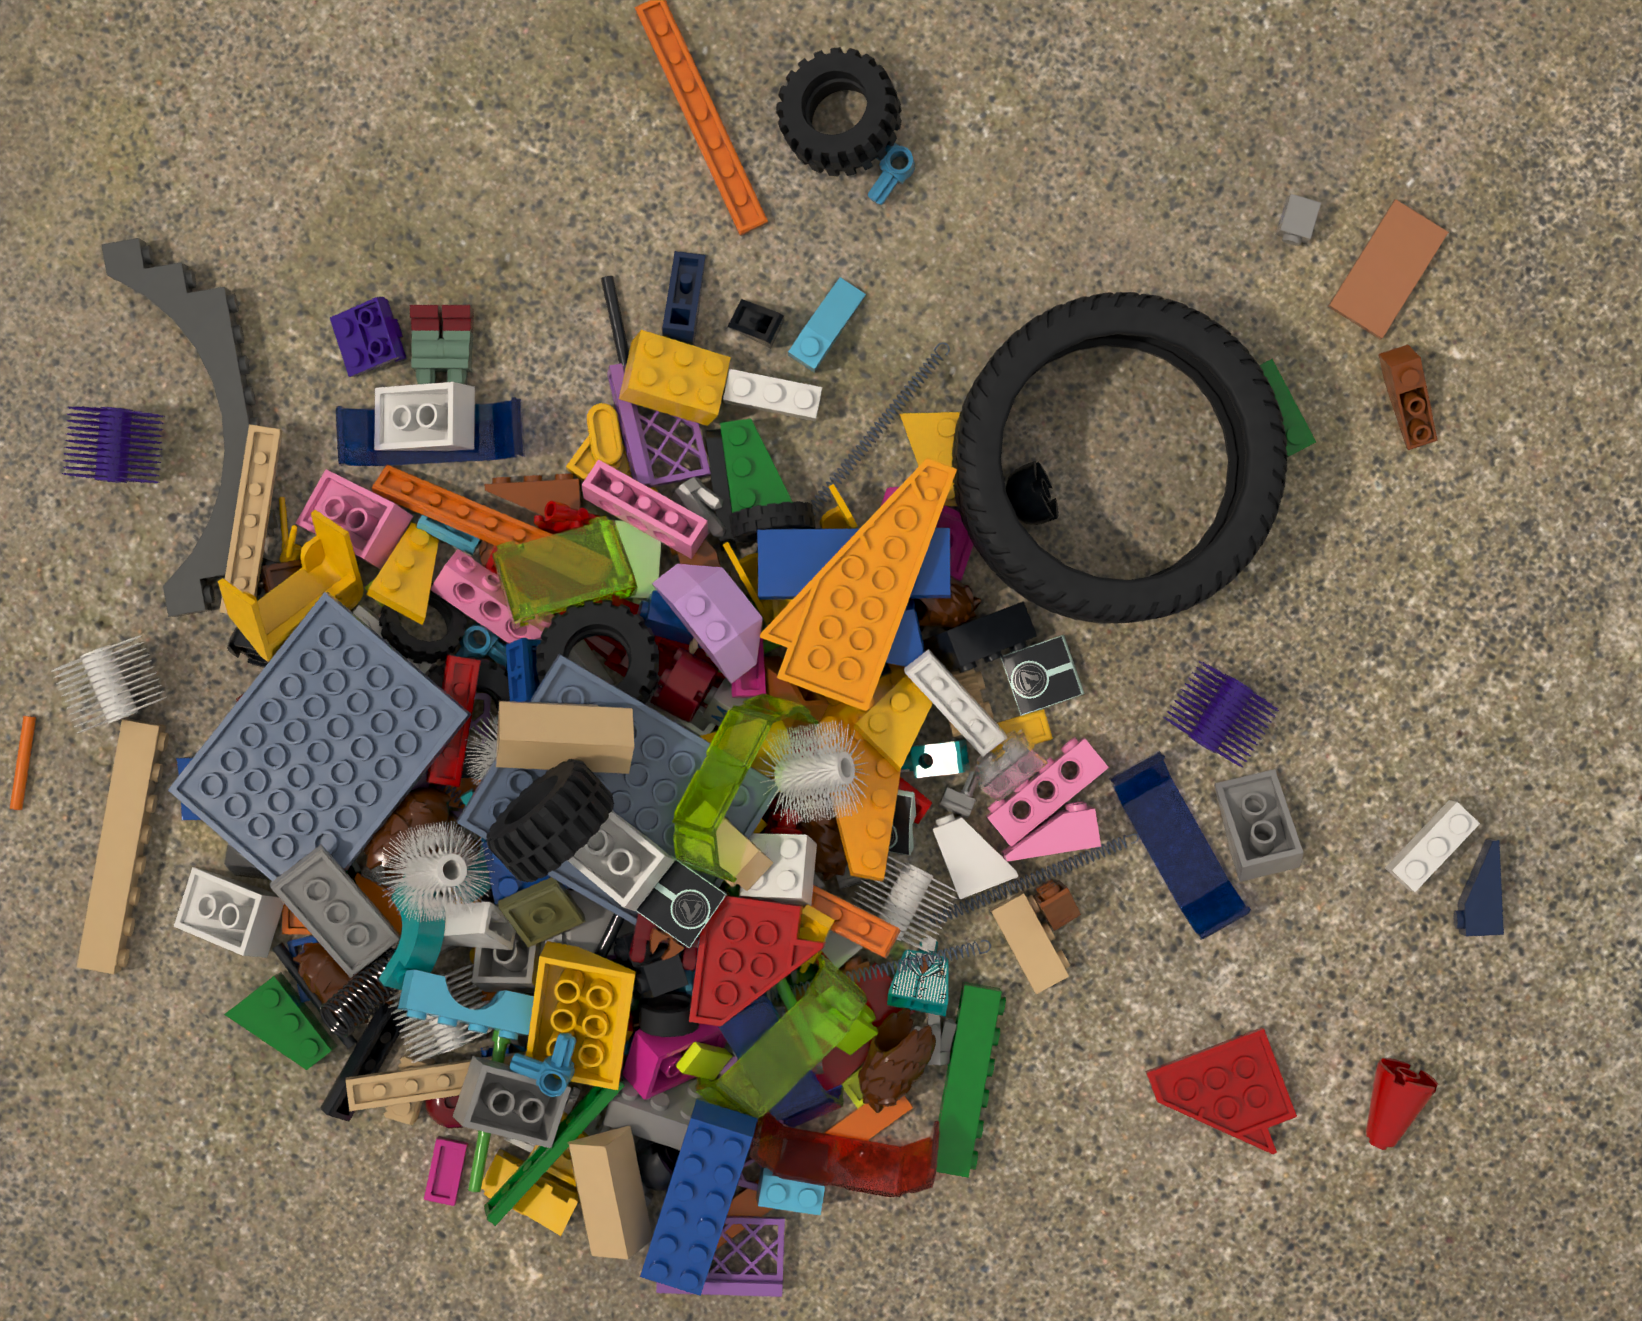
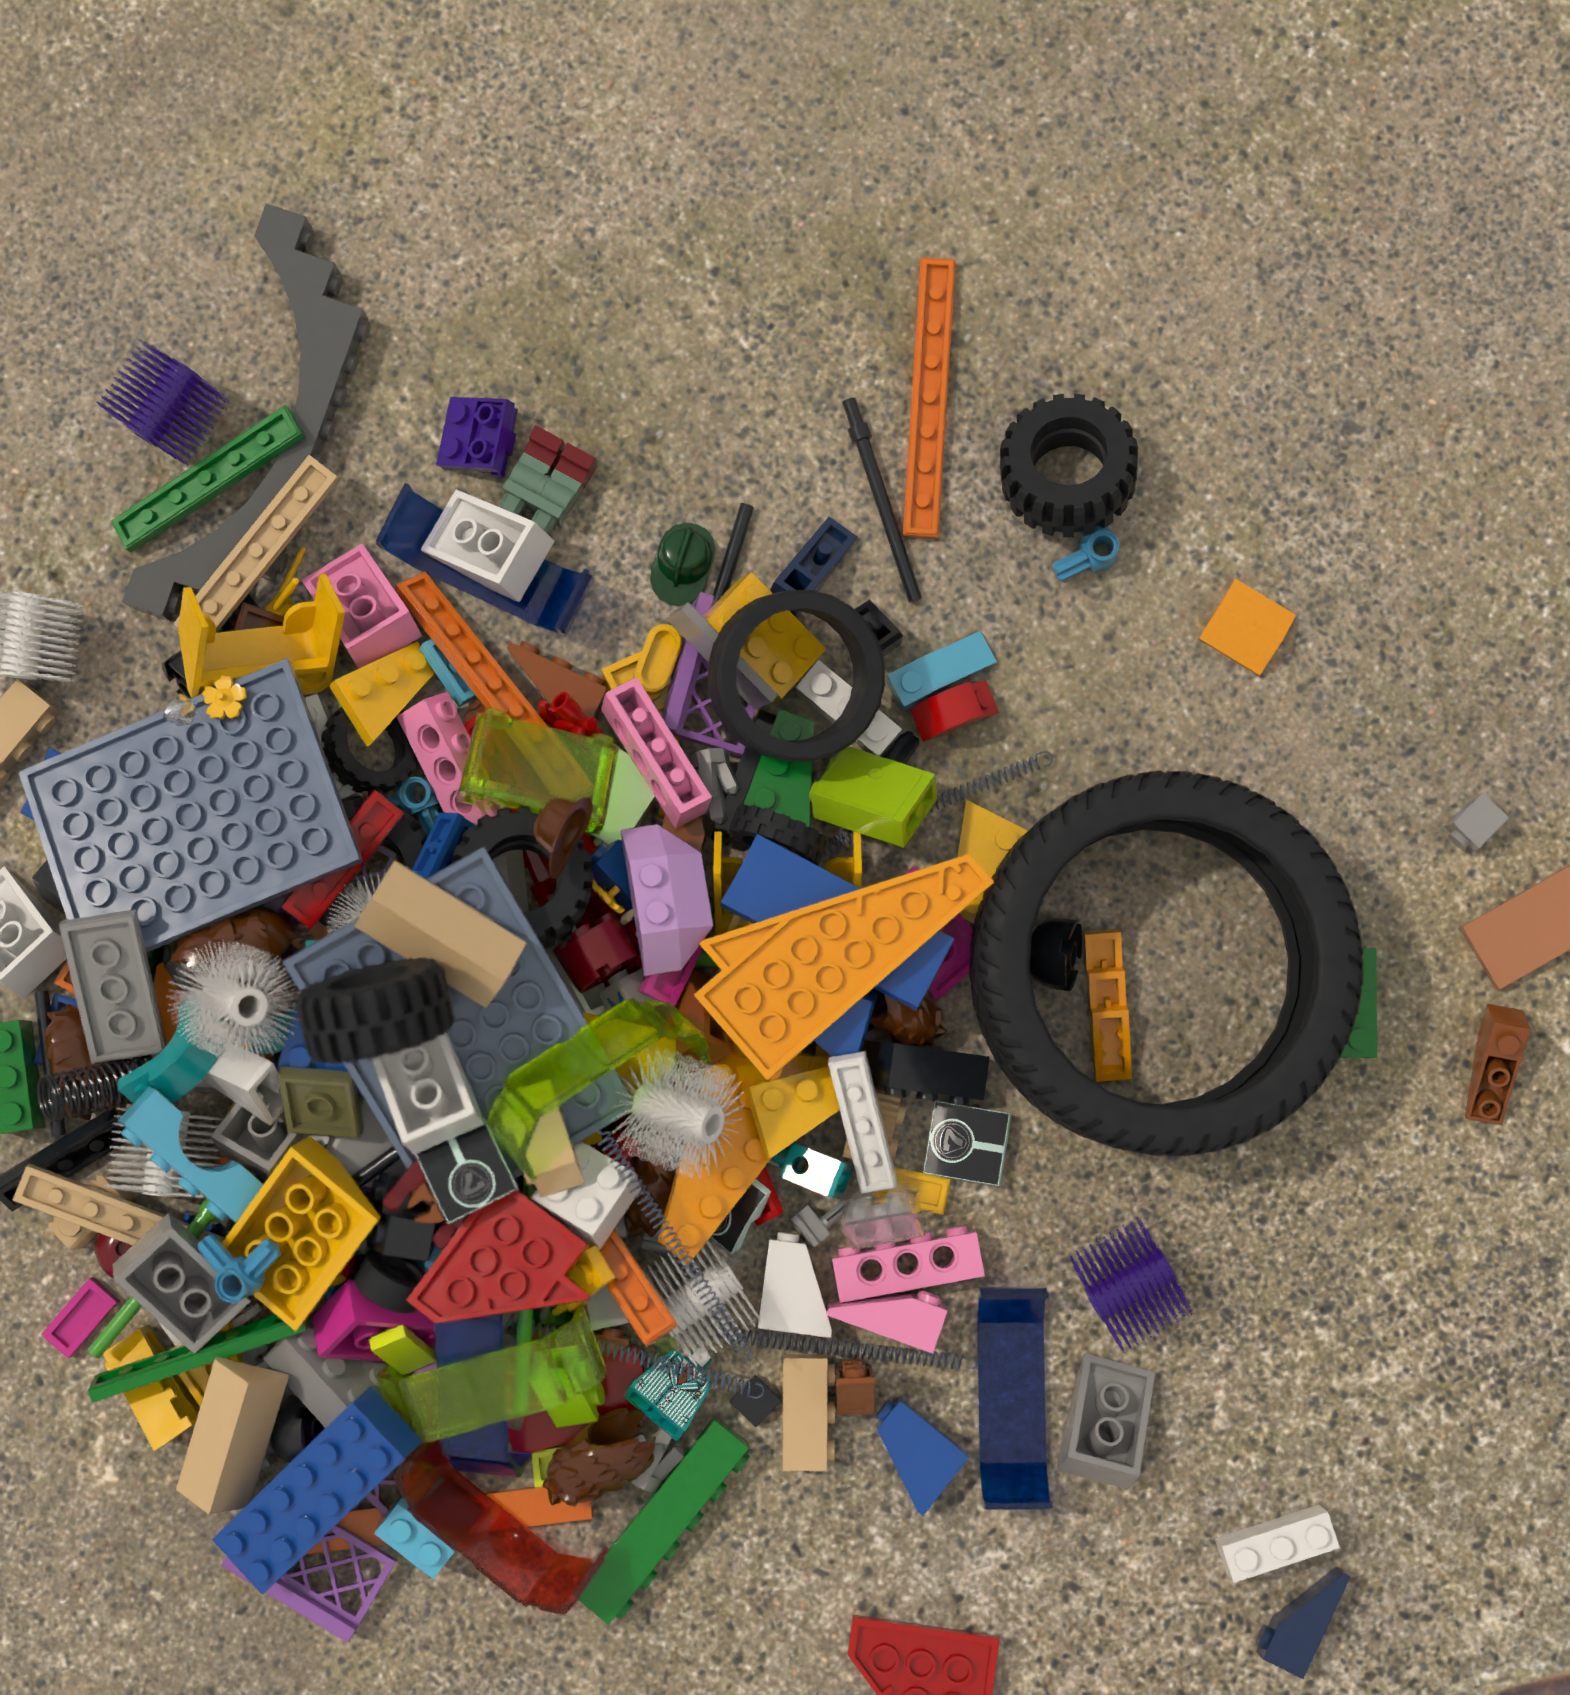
camera: 30 degrees right, 5 degrees down
(179, 484) = (208, 478): none -> green tile
(267, 676) = (180, 711): none -> clear hinge
(295, 648) = (224, 699): none -> yellow plant
(582, 349) = (682, 564): none -> dark green piece
(608, 607) = (560, 828): none -> reddish brown piece
(654, 407) = (702, 637): none -> light grey piece
(664, 174) = (860, 435): none -> black bar
(670, 639) = (608, 897): none -> yellow plant
(780, 377) = (867, 675): none -> black tyre
(828, 448) = (876, 792): none -> lime piece
(853, 350) = (953, 709): none -> red brick
(868, 870) = (670, 1233): none -> sand blue piece
(992, 959) = (755, 1409): none -> black tile
(1043, 161) = (1247, 627): none -> light orange slope
(1091, 512) = (1107, 1005): none -> light orange slope
(1131, 924) = (919, 1451): none -> blue slope

